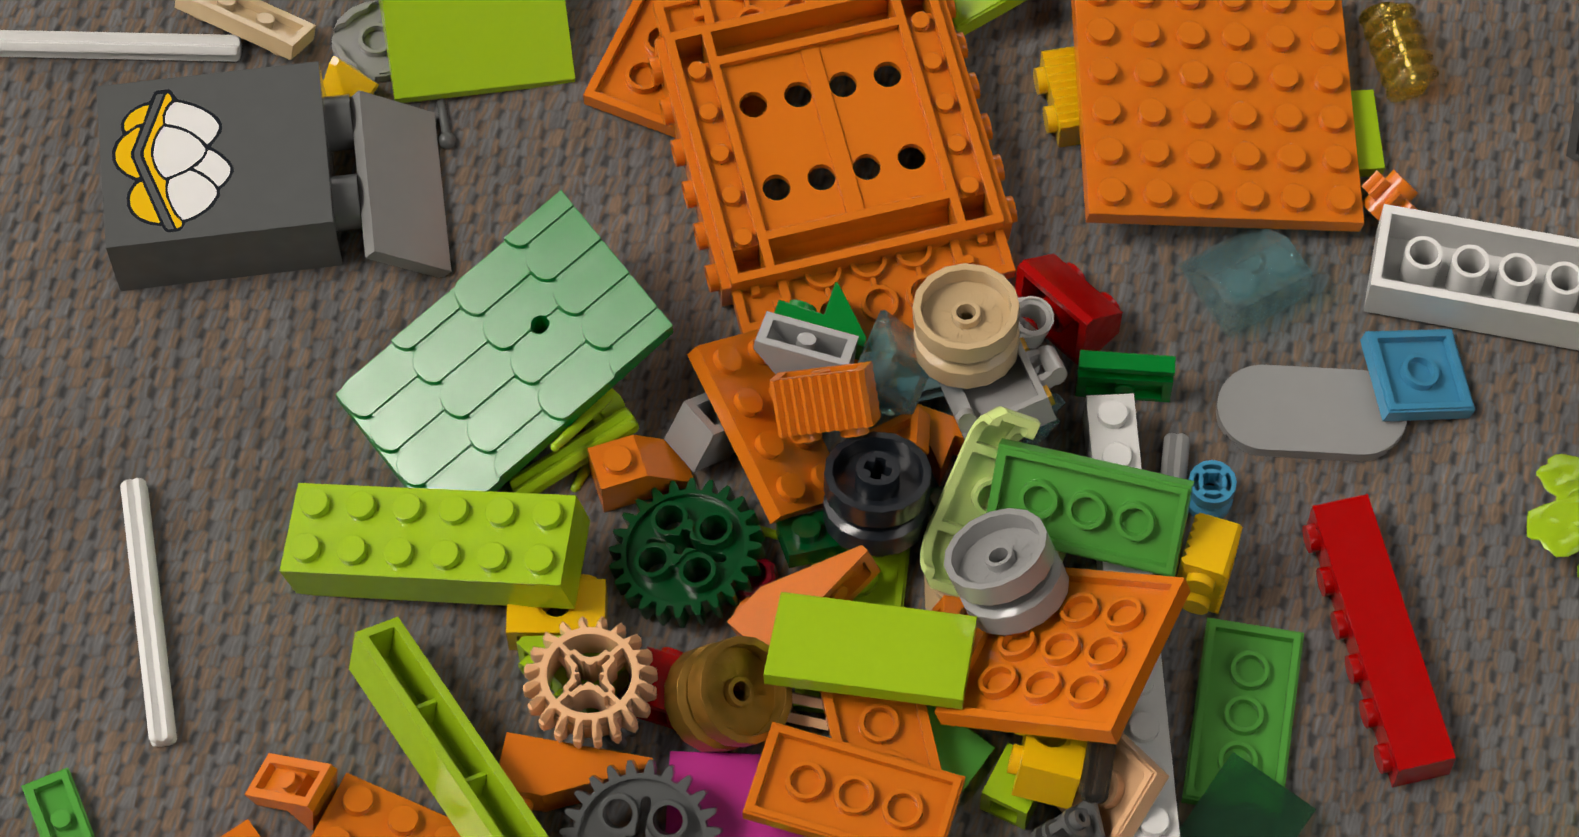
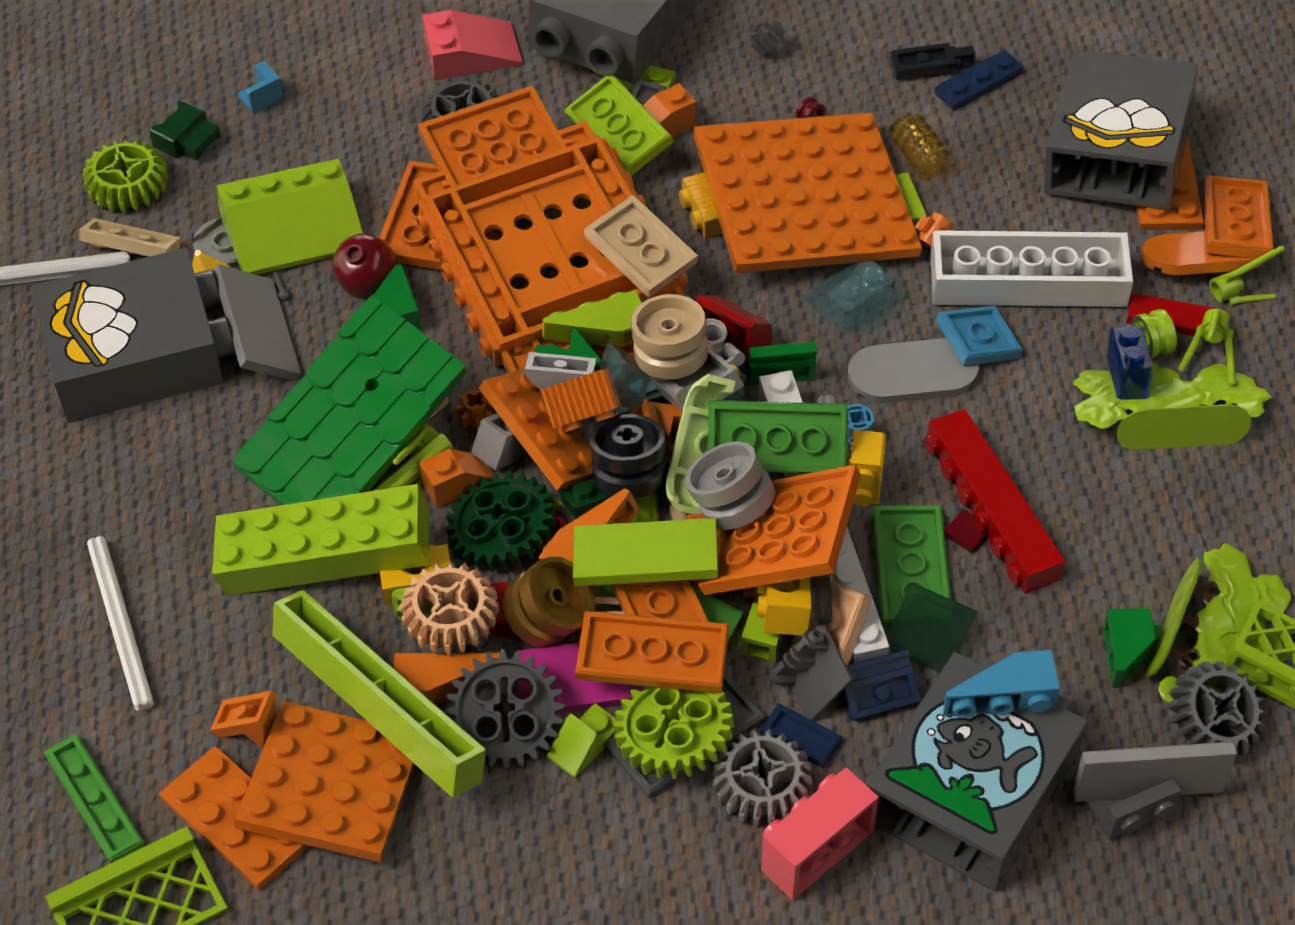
camera: 10 degrees left, 10 degrees down
(566, 117) = (362, 264): none -> dark red cylinder
(598, 184) = (398, 296): none -> green slope
(680, 382) = (473, 409): none -> orange gear
(873, 274) = (595, 321): none -> lime slope
(956, 164) = (640, 246): none -> tan plate
(1329, 678) = (964, 531): none -> dark red tile

